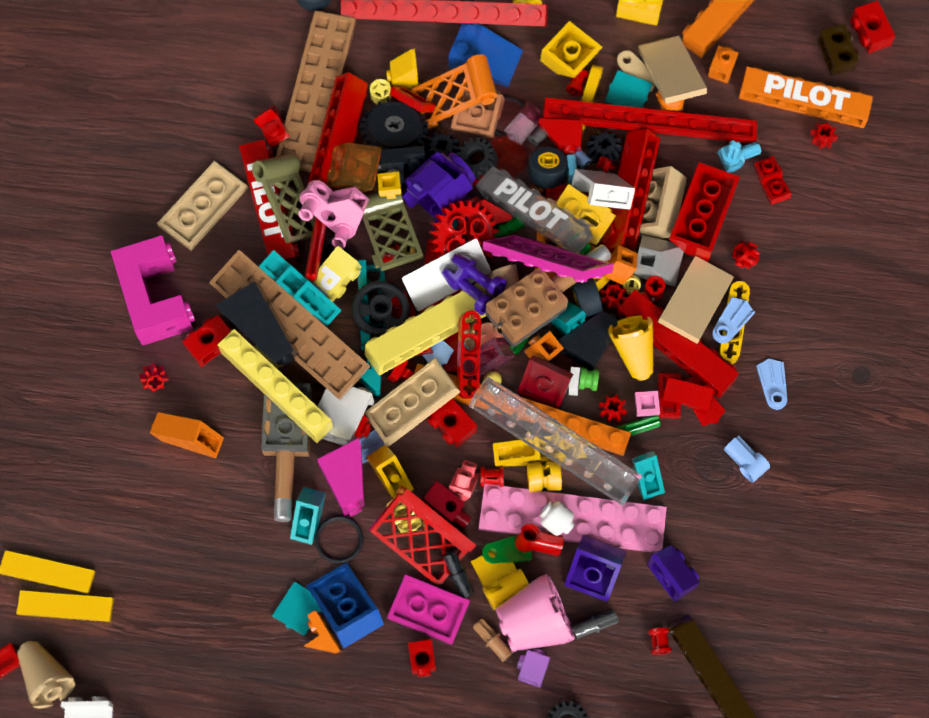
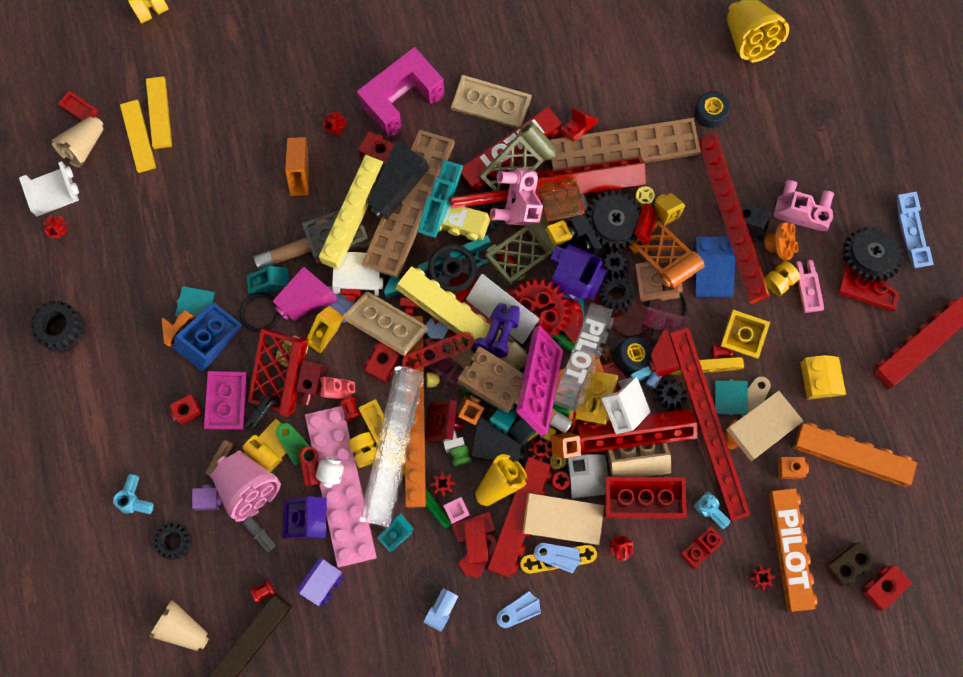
camera: 70 degrees right, 5 degrees up
(605, 164) = (654, 401): red hand -> none

